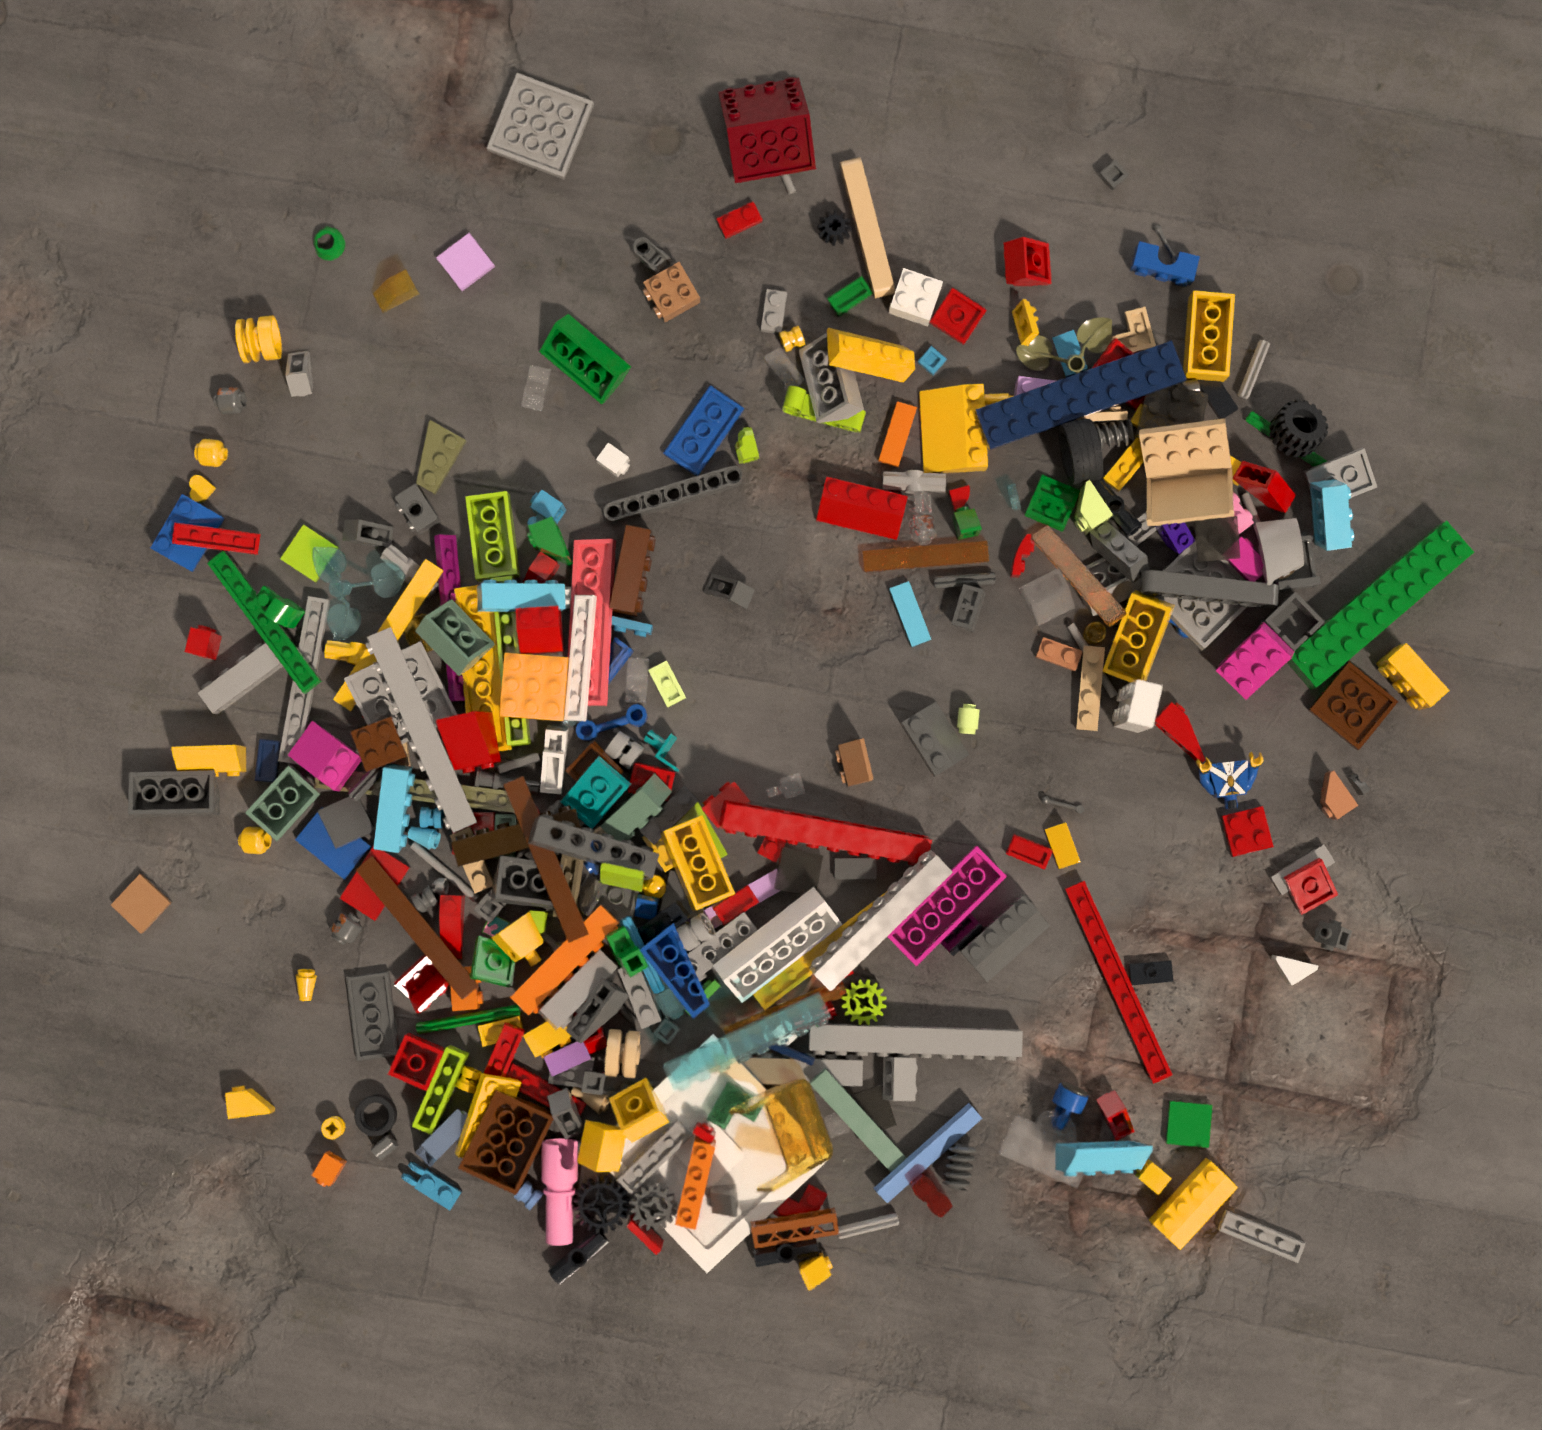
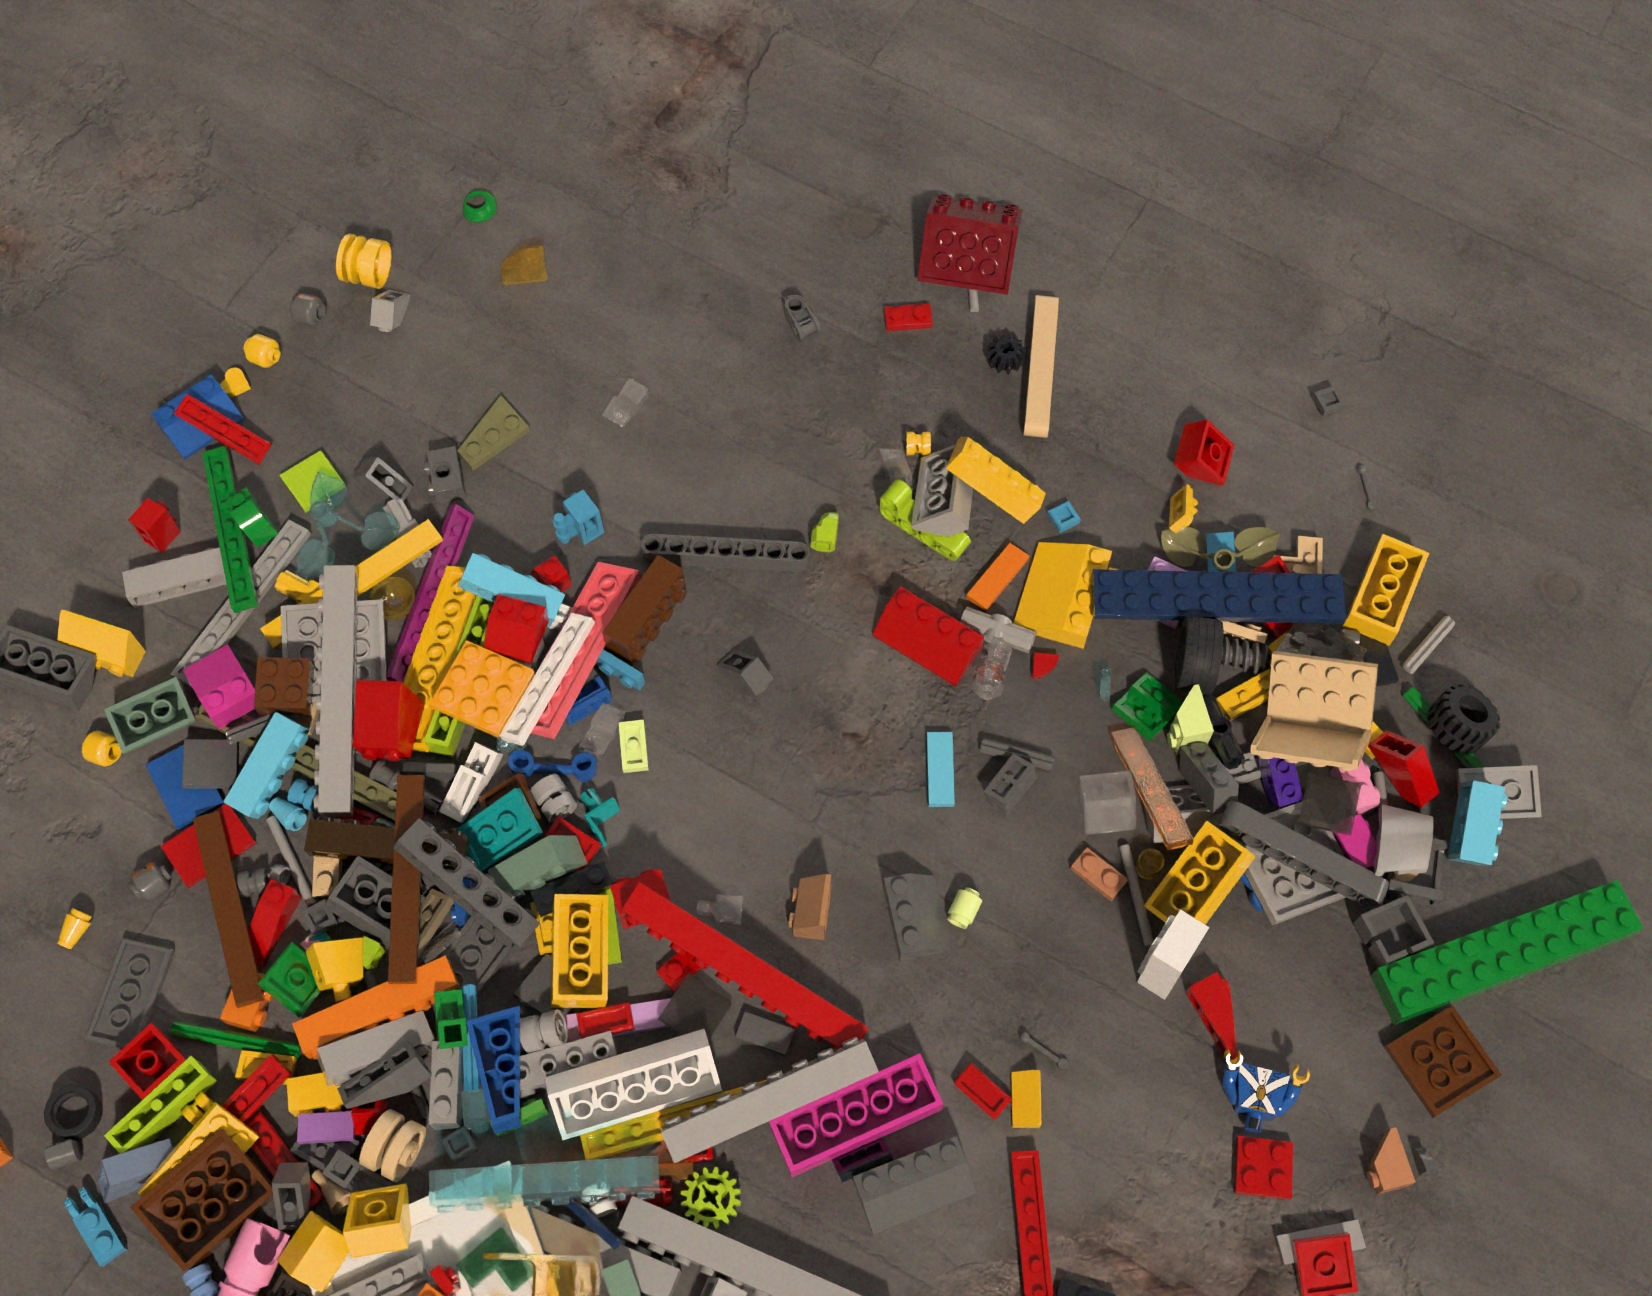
camera: 20 degrees right, 20 degrees down
(267, 760) = (160, 669): dark blue tile -> none
(337, 1126) = (23, 1111): yellow wheel -> none
(422, 984) = (200, 973): red bracket -> none
(454, 637) = (420, 607): sand green slope -> none
(465, 262) = (607, 265): lavender tile -> none
(492, 535) = (513, 521): lime brick -> none
(540, 126) = (739, 170): light grey plate -> none
(548, 539) = (569, 544): green slope -> none
(584, 358) = (689, 390): green slope -> none
(613, 460) = (675, 497): white brick -> none
(622, 877) = (484, 932): lime tile -> none
(646, 906) = (500, 985): blue plate -> none
(654, 887) = (519, 964): yellow hat -> none
(671, 292) = (807, 357): medium nougat brick -> none
(672, 914) = (527, 998): black plate -> none
(703, 431) = (786, 503): blue tile -> none
(773, 311) = (909, 413): light grey plate -> none
(850, 296) = (997, 425): green tile -> none
(915, 297) = (1068, 446): white brick -> none
(925, 556) = (981, 713): clear orange tile -> none
(958, 316) = (1108, 482): red tile -> none
(966, 523) = (1040, 692): green slope -> none
(1023, 550) = (1094, 746): red slope -> none
(1090, 688) = (1123, 925): tan plate -> none
(1147, 263) = (1372, 516): blue arch -> none
(1255, 661) = (1334, 958): dark pink brick -> none
(1412, 677) = (1527, 1049): yellow brick -> none

